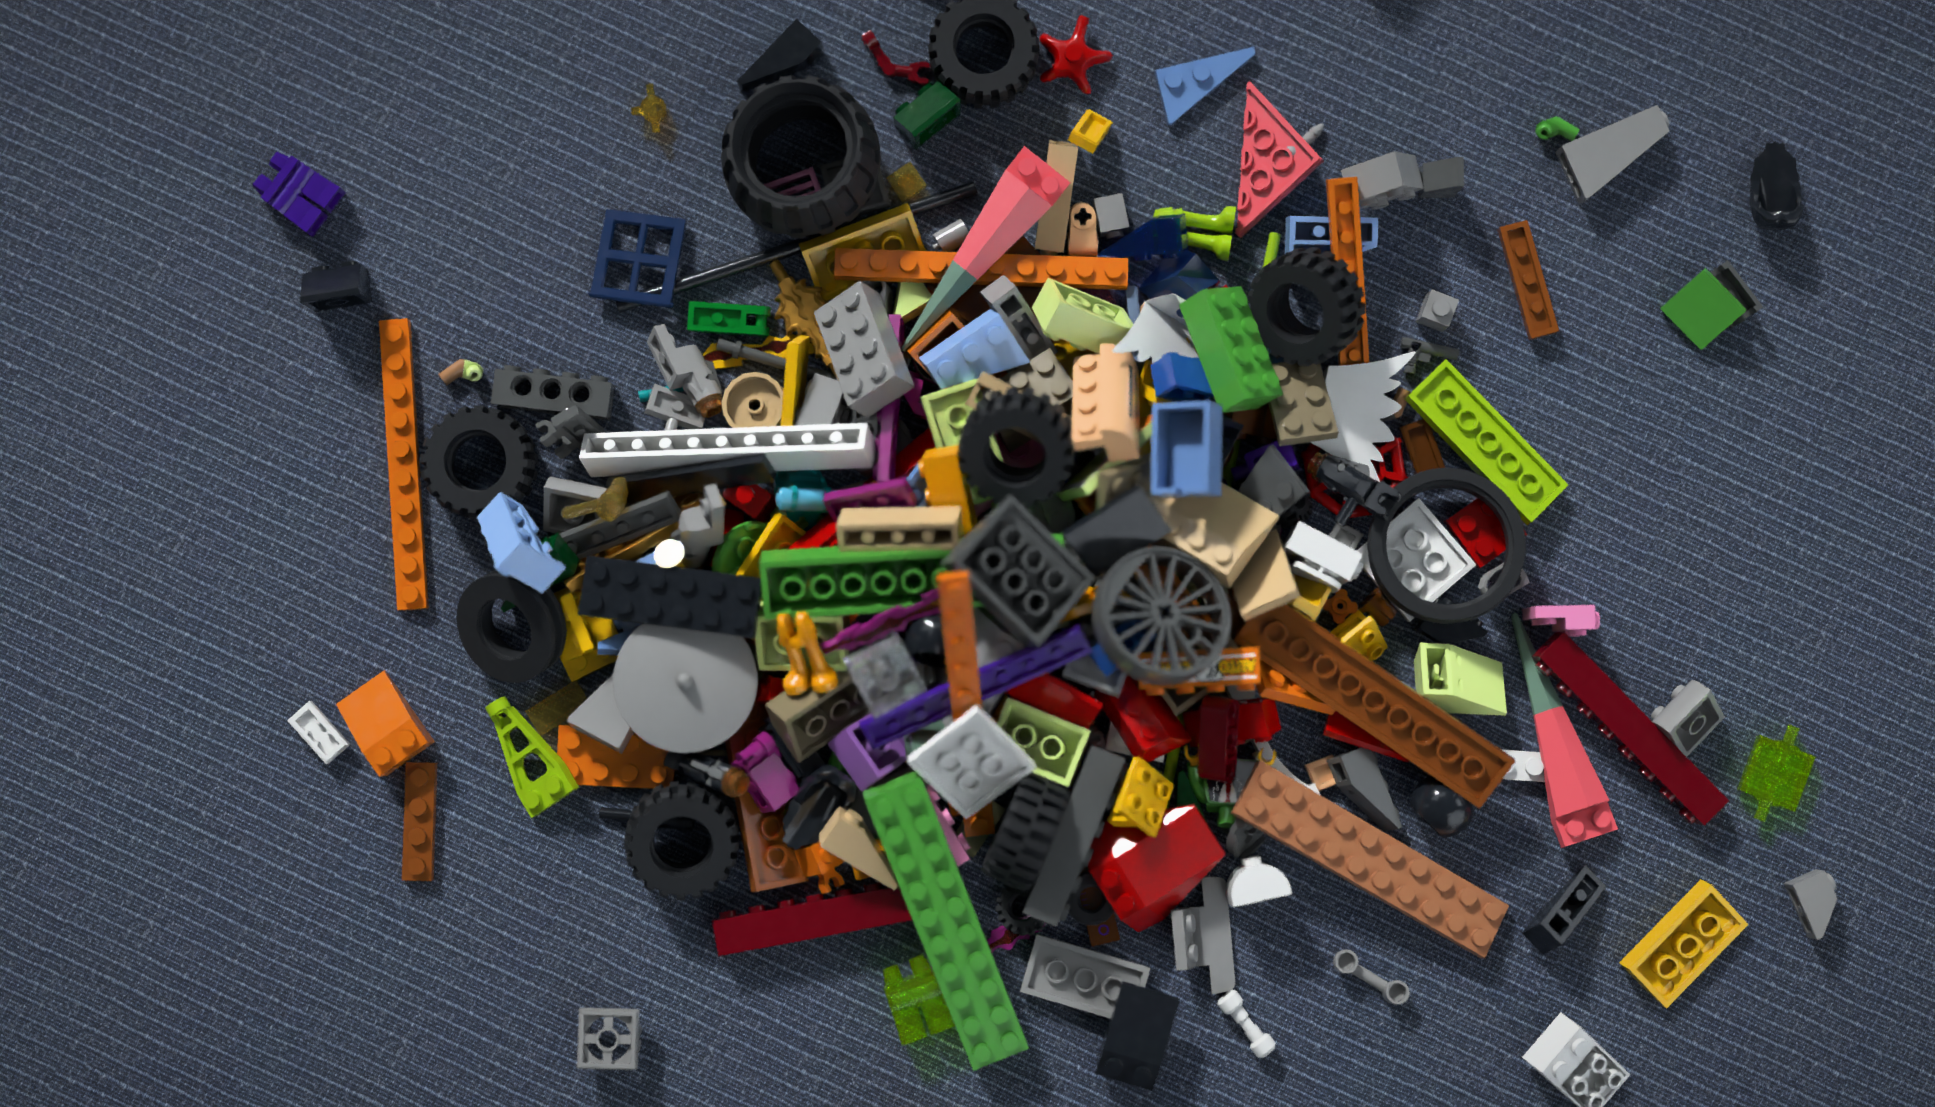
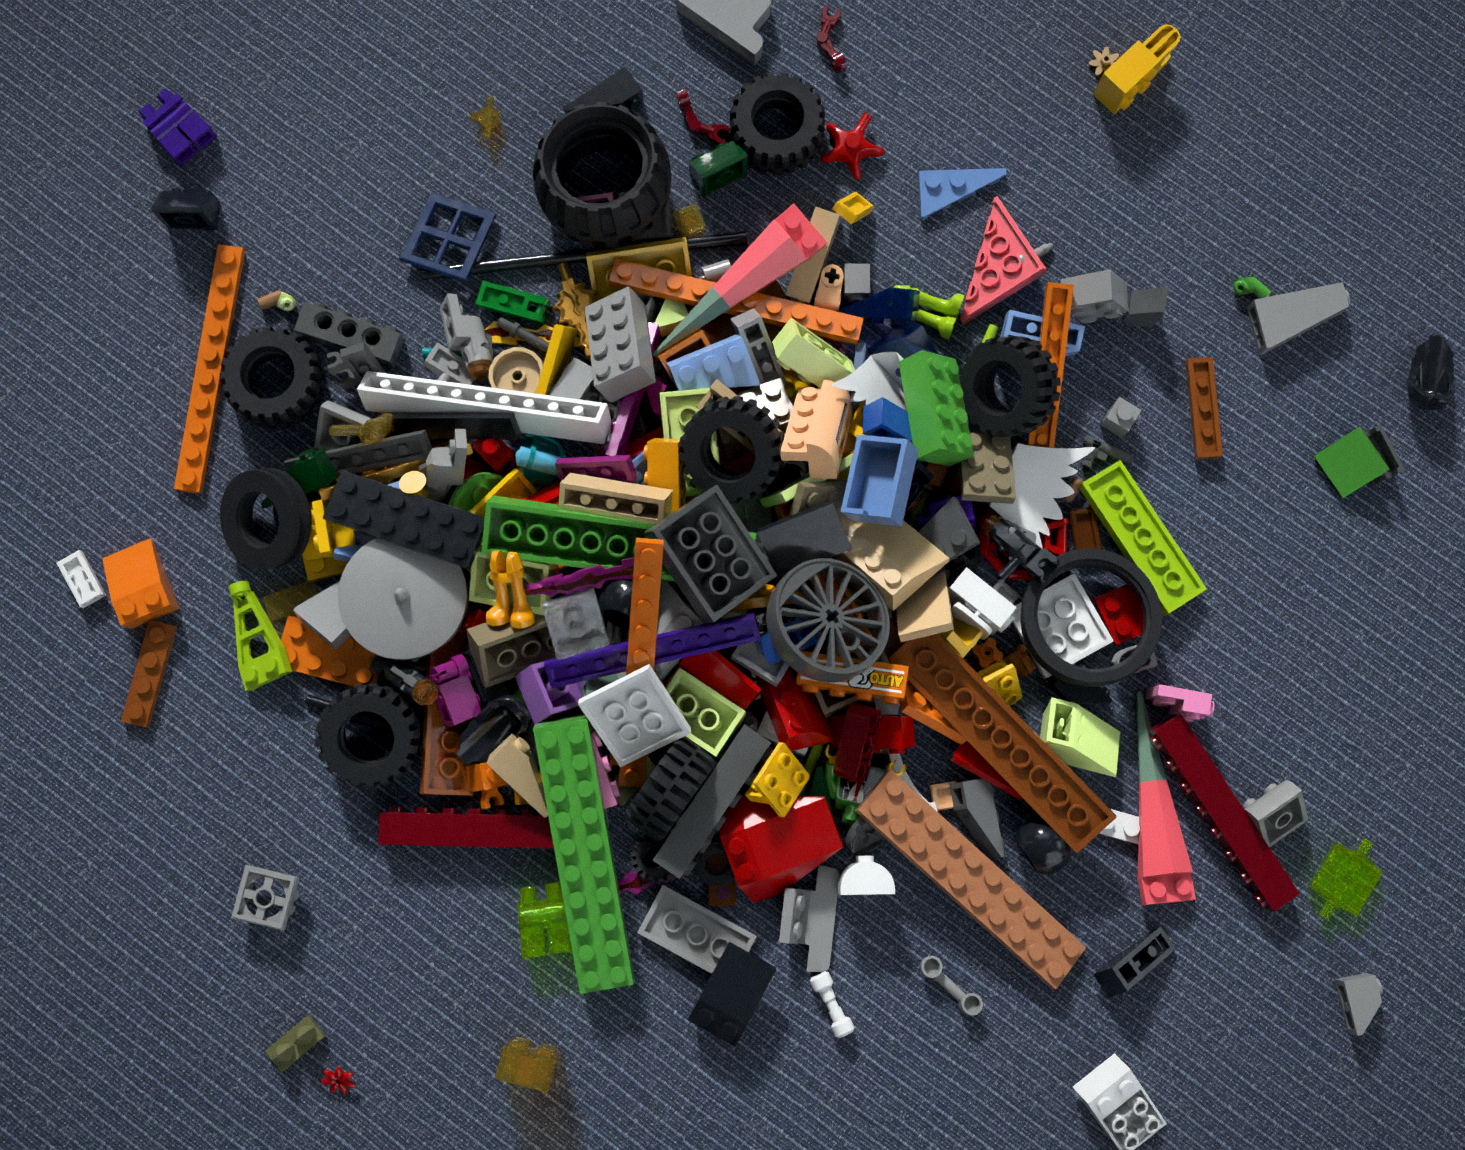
camera: 10 degrees right, 5 degrees down
(515, 544) = (283, 449): light blue wedge -> none
(1684, 943) = (1236, 1014): yellow slope -> none

